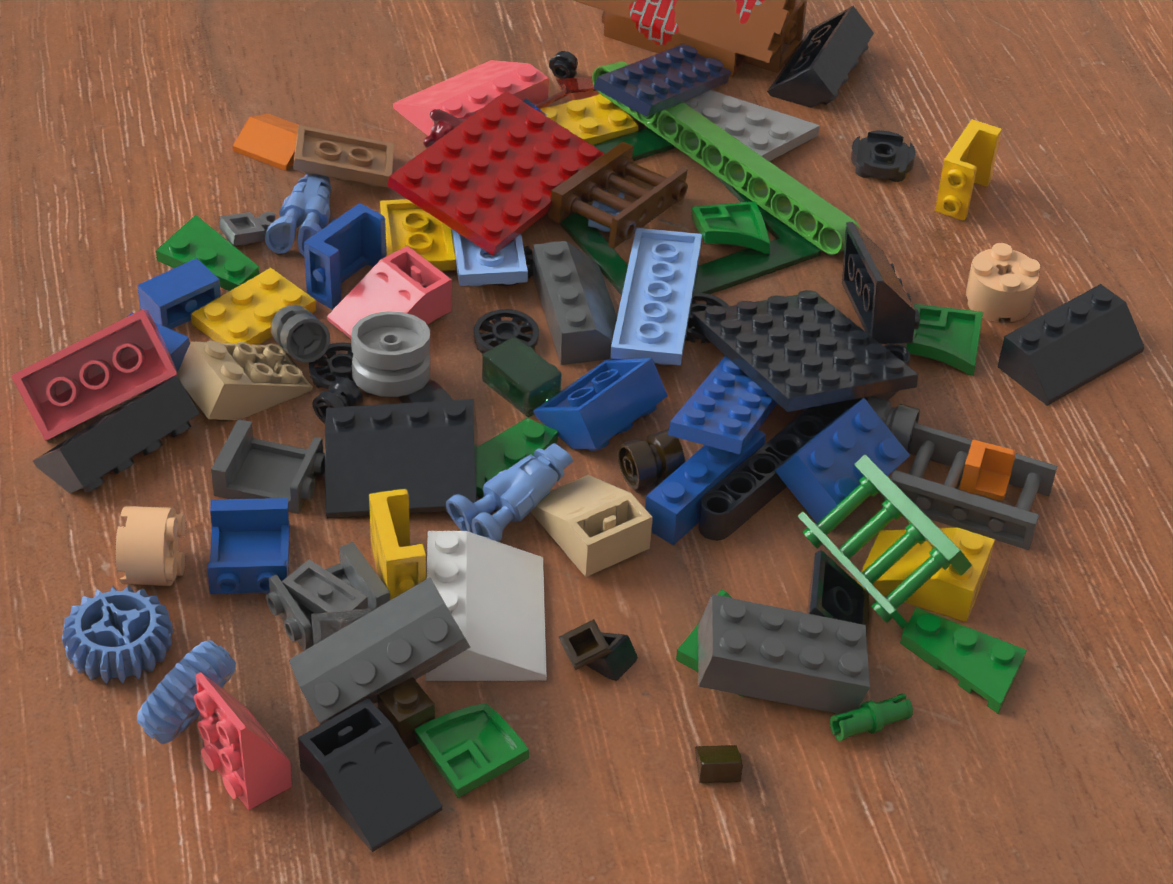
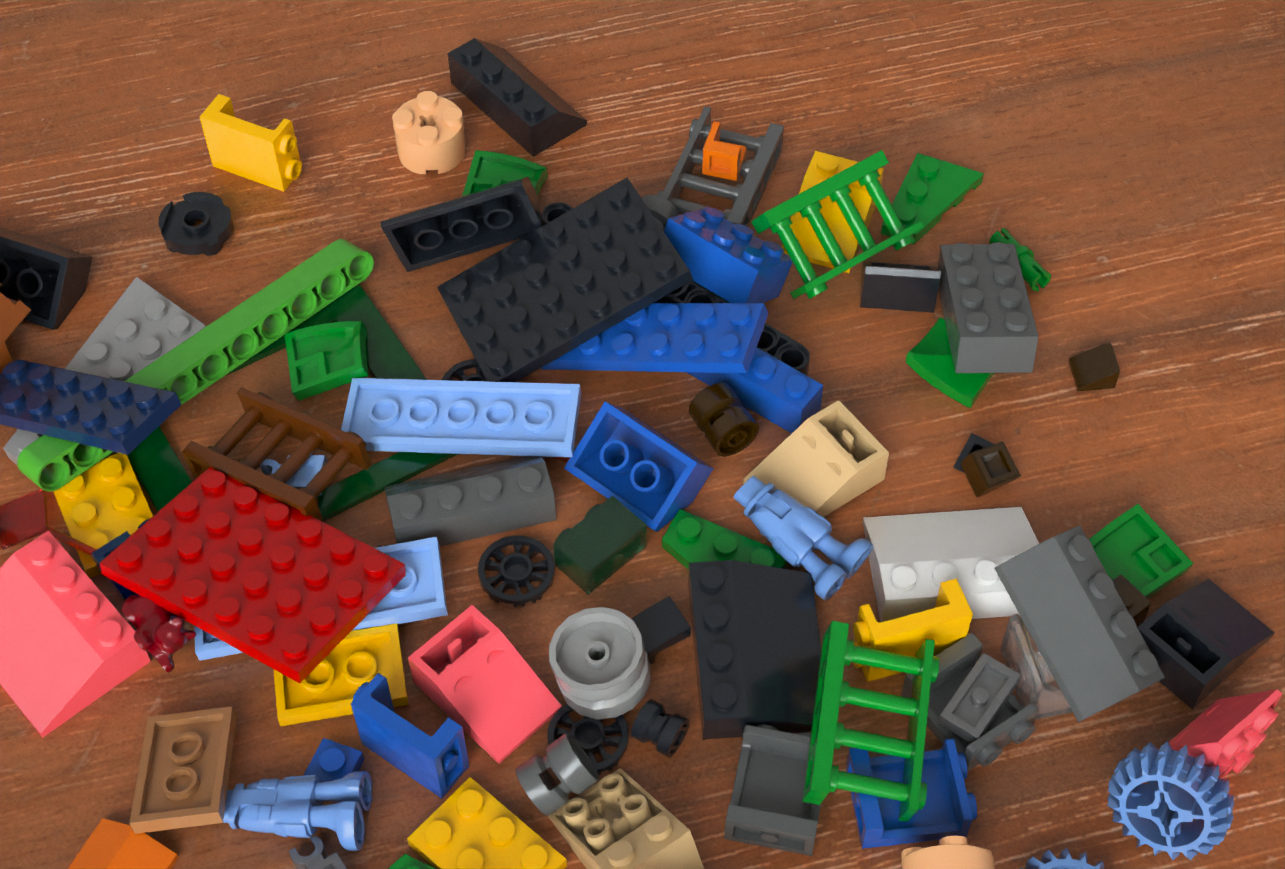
camera: 90 degrees left, 10 degrees up
(296, 468) = (829, 734): none -> green fence

